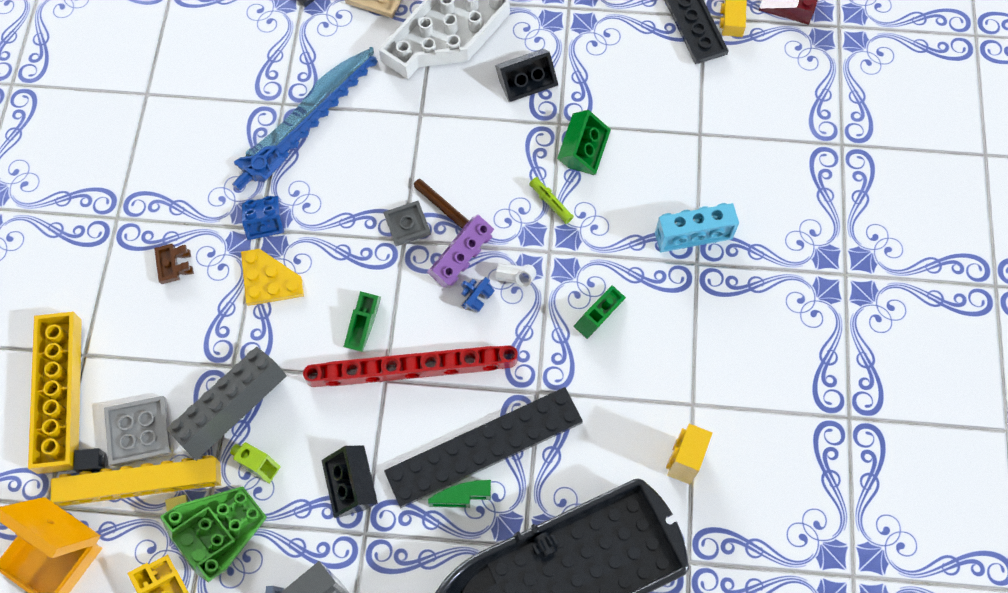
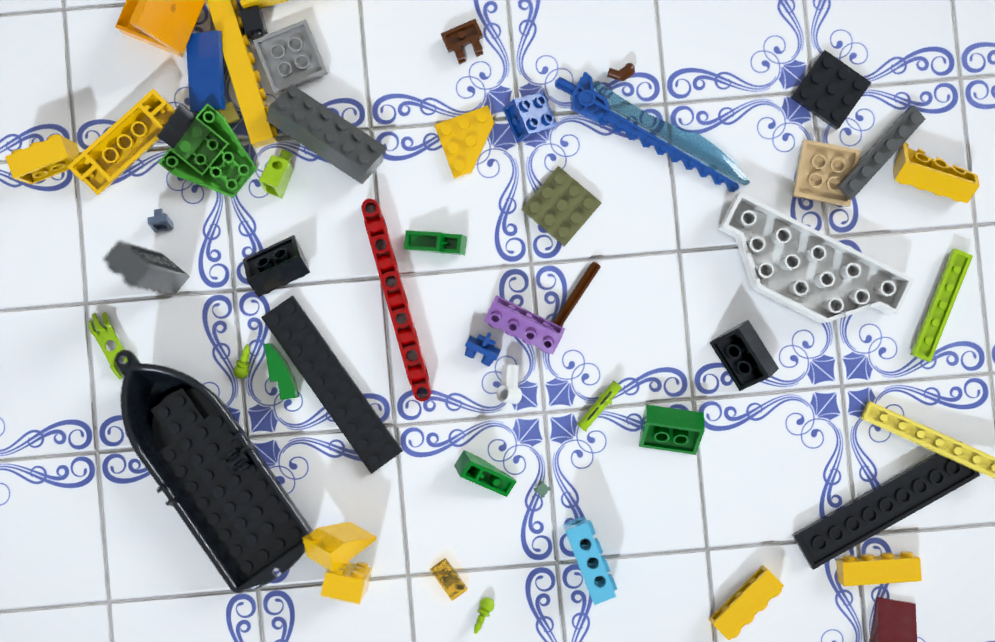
camera: 80 degrees right, 20 degrees up
(125, 518) = (205, 70): none -> blue tile
(175, 556) = (176, 125): none -> black slope
(245, 131) = (622, 74): none -> reddish brown arm
(354, 204) = (561, 206): none -> olive plate
(407, 223) = (547, 264): dark grey plate -> none
(451, 539) = (241, 369): none -> lime bar
(623, 264) = (542, 489): none -> sand green piece
(650, 456) = (336, 544): none -> yellow slope
(700, 364) = (448, 579): none -> clear yellow tile
(732, 334) = (486, 606): none -> lime bar
(753, 107) = (746, 603): none -> yellow brick

